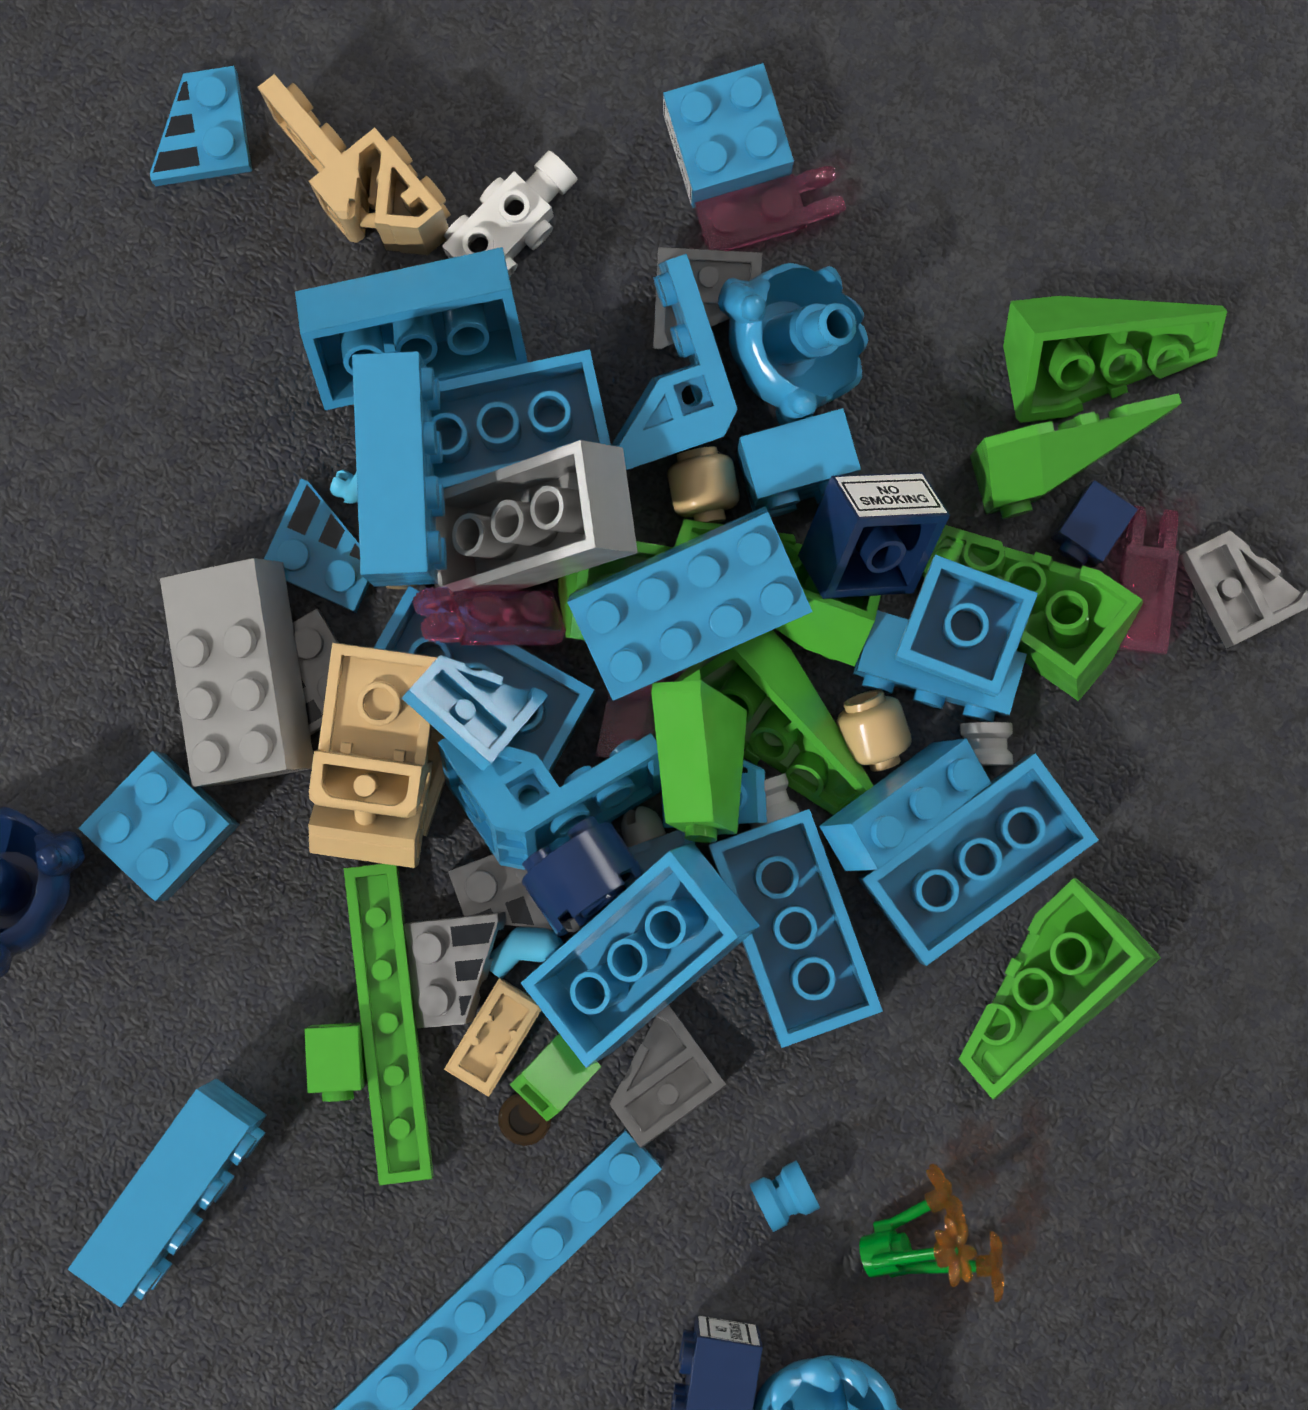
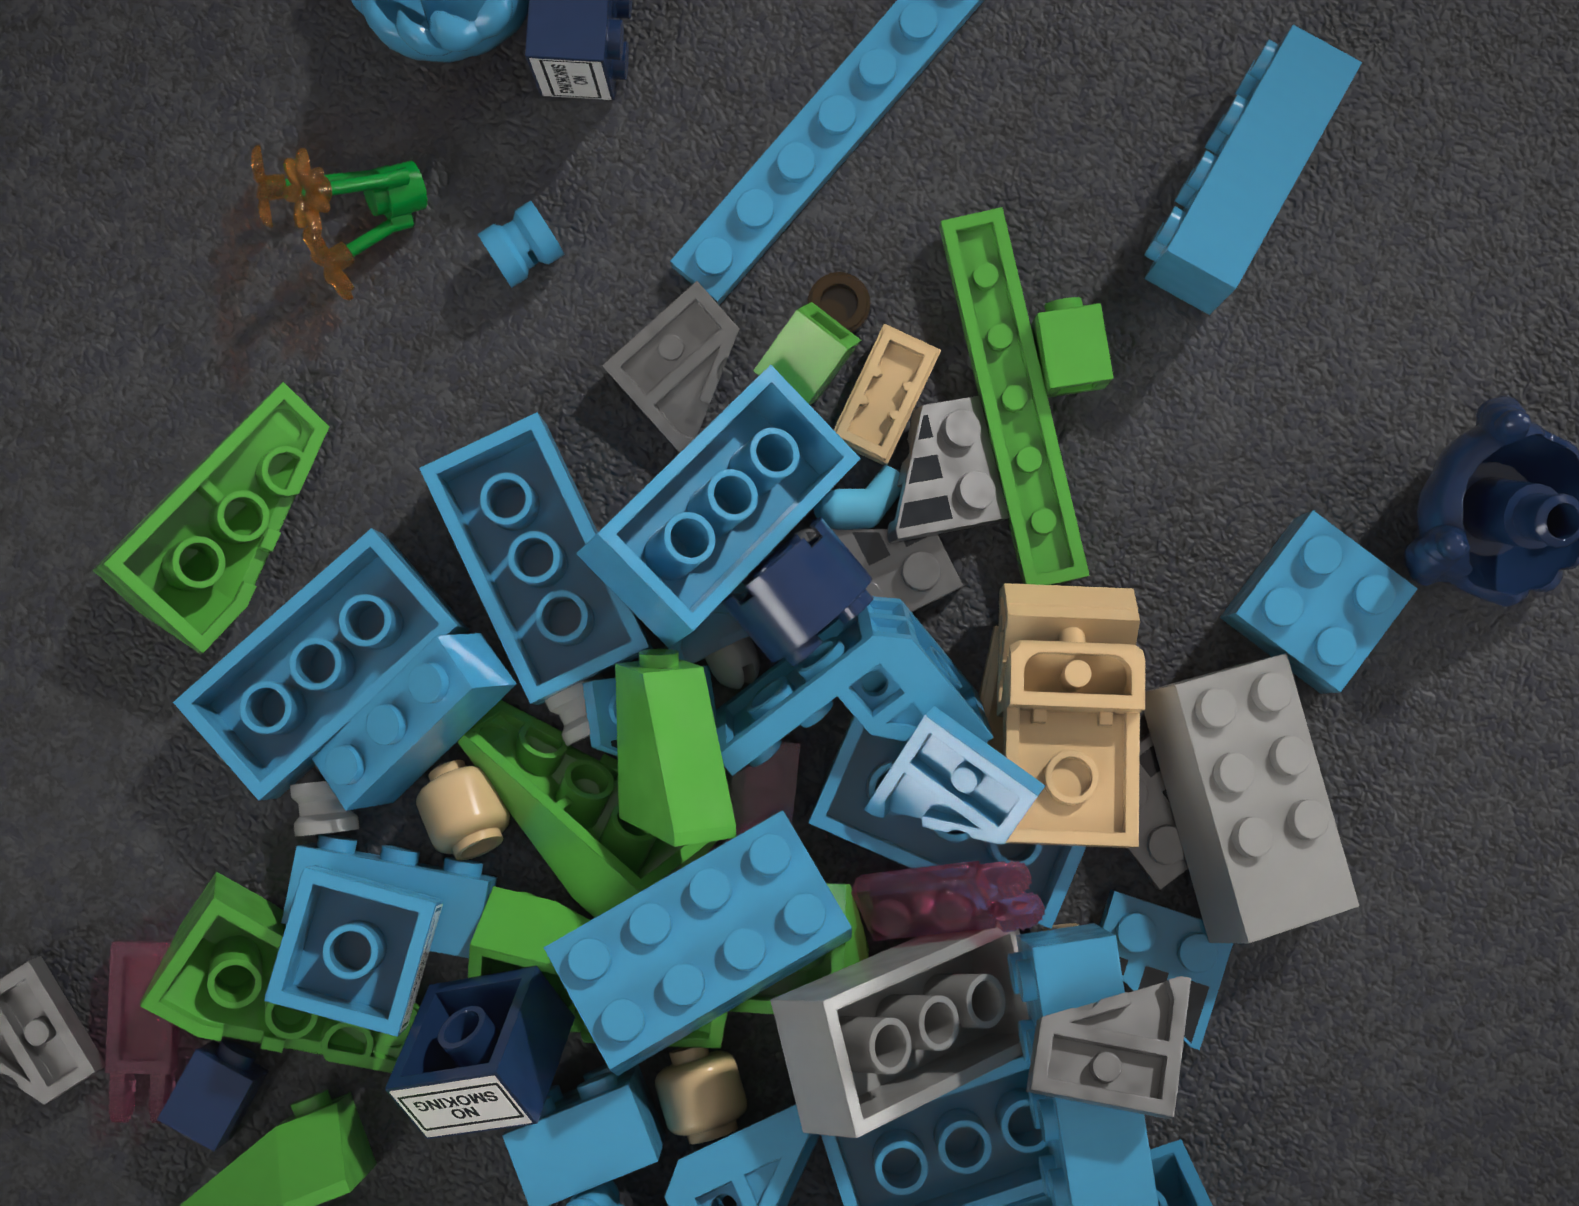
camera: 175 degrees right, 0 degrees up
(372, 486) = (1115, 1050): none -> flat silver wing

